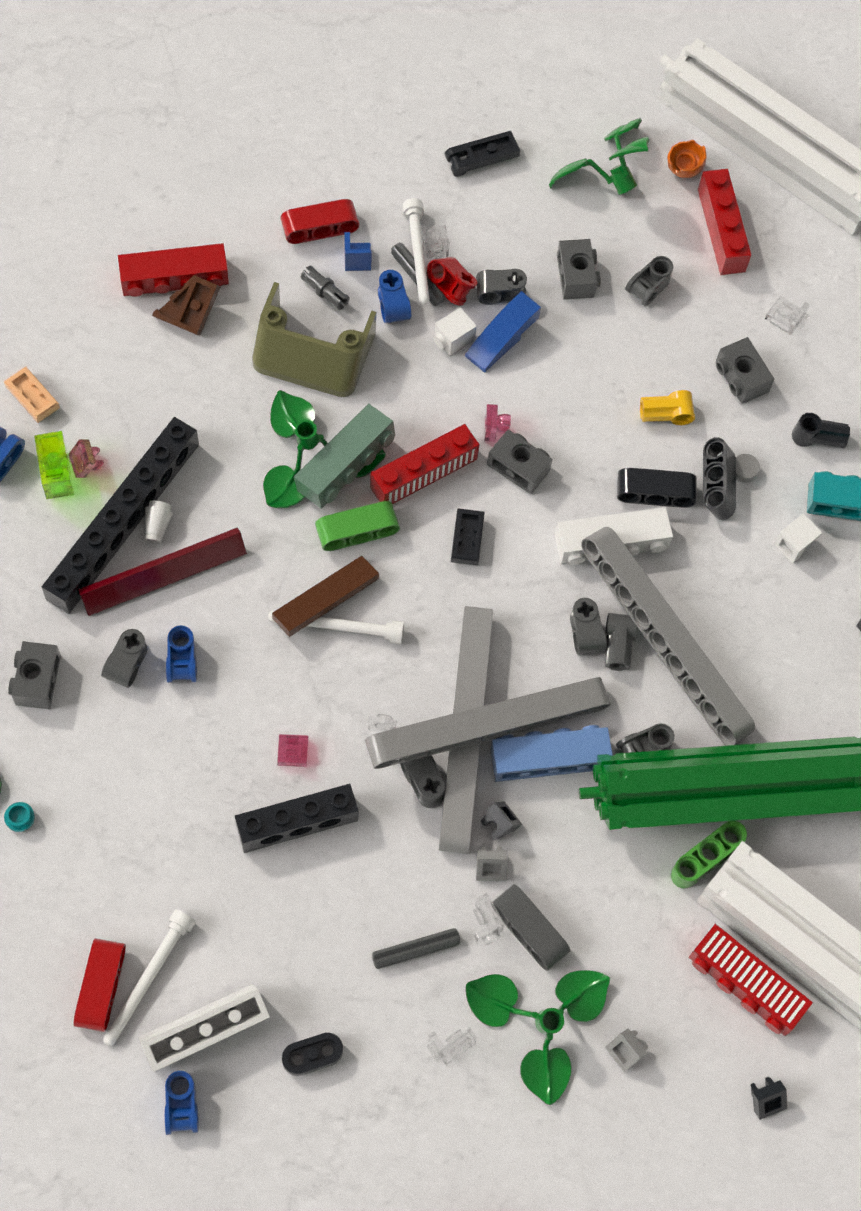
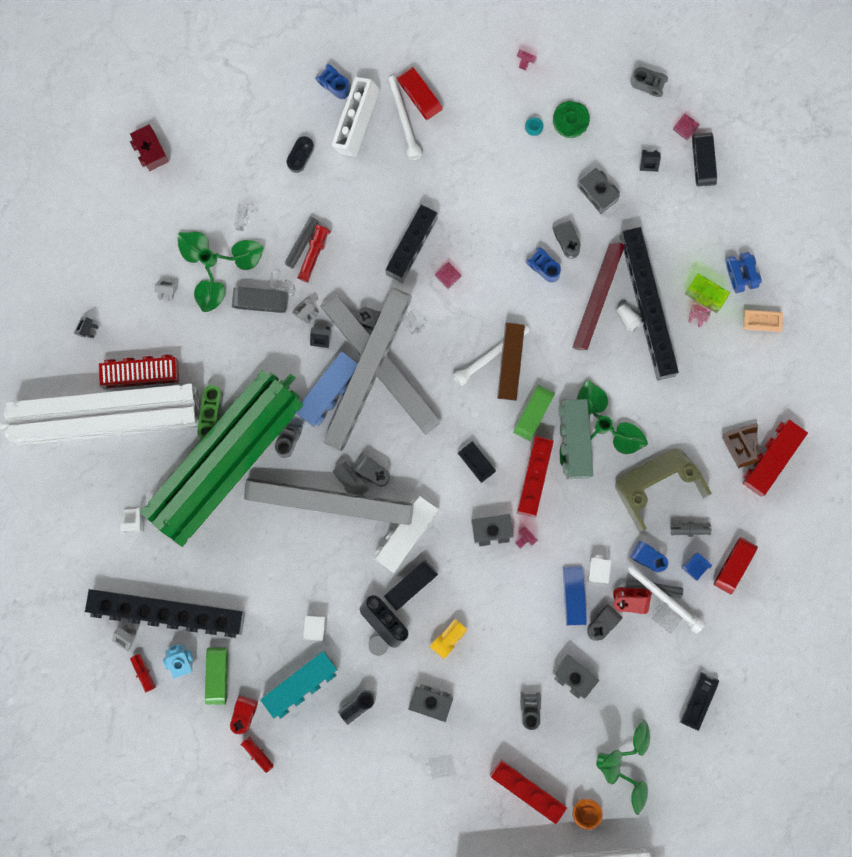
camera: 145 degrees right, 15 degrees up
(403, 925) = (316, 245): none -> red pin

